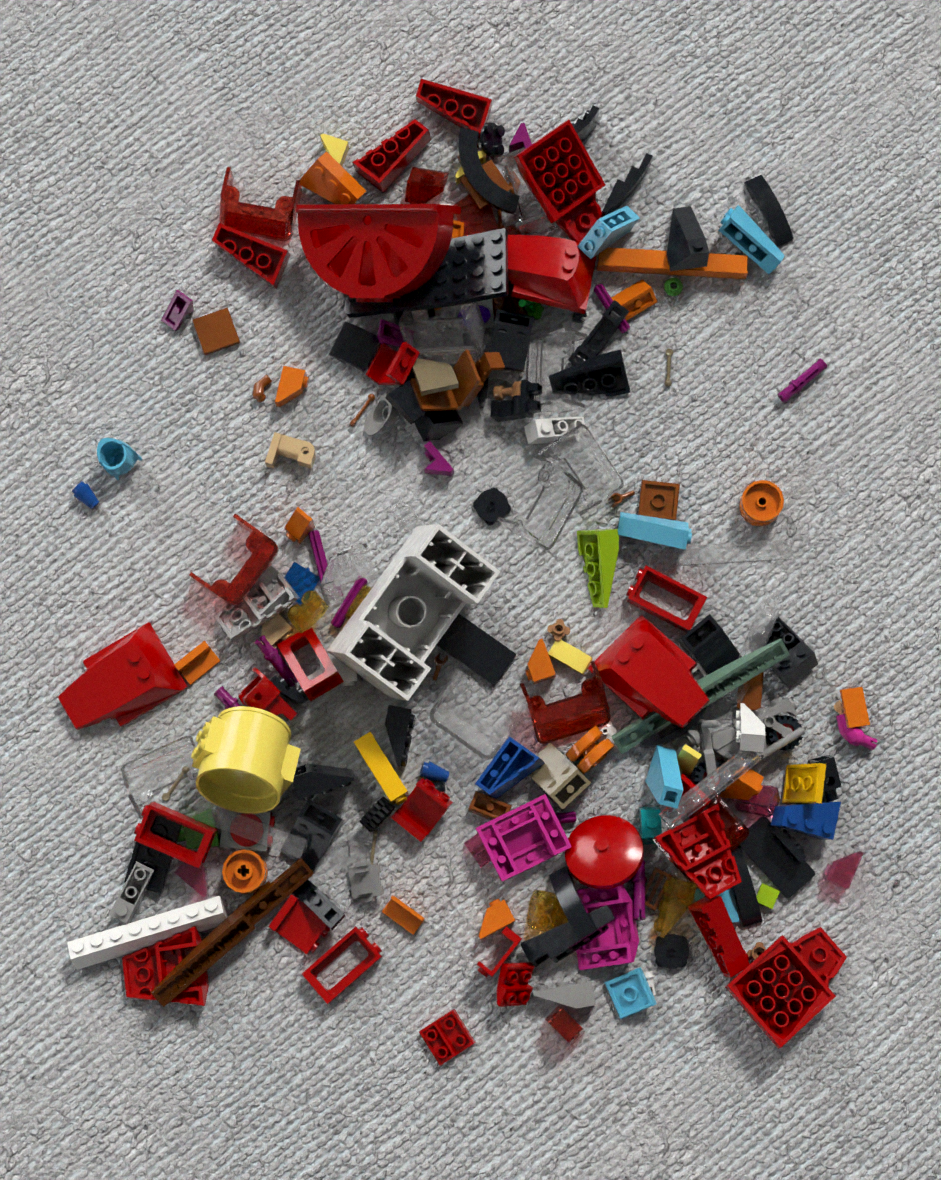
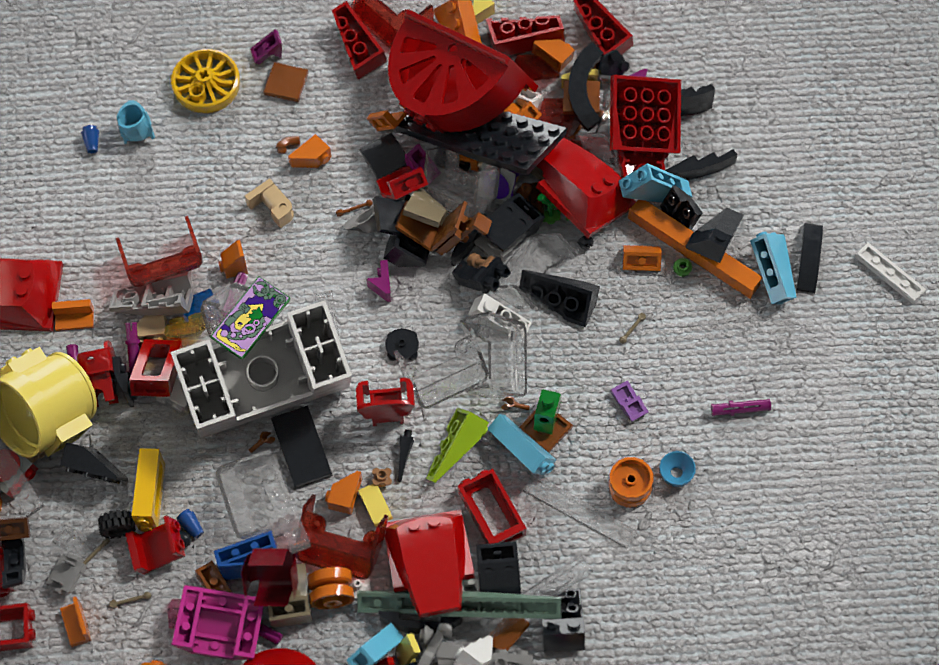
camera: 35 degrees right, 15 degrees down
(143, 384) = (205, 80): none -> yellow piece
(318, 828) = (61, 506): black slope -> none
(336, 312) = (385, 120): none -> orange panel
(374, 575) = (250, 318): none -> tile
(398, 725) = (186, 467): black slope -> none
(420, 878) = (114, 604): none -> dark tan hinge
(431, 156) = (554, 53): none -> orange slope
(506, 711) = (283, 507): none -> clear tile
(523, 566) = (385, 404): none -> red piece
(542, 774) = (276, 575): none -> dark red piece
(558, 591) = (406, 444): none -> black piece
(600, 334) = (594, 266): black slope -> none
(606, 300) = (617, 267): magenta axle -> none
(641, 236) = (681, 207): none -> black slope
(656, 487) = (548, 408): none -> green torso
(710, 434) = (629, 401): none -> medium lavender slope
(792, 458) = (677, 460): none -> dark azure piece
(842, 183) = (890, 273): none -> white tile

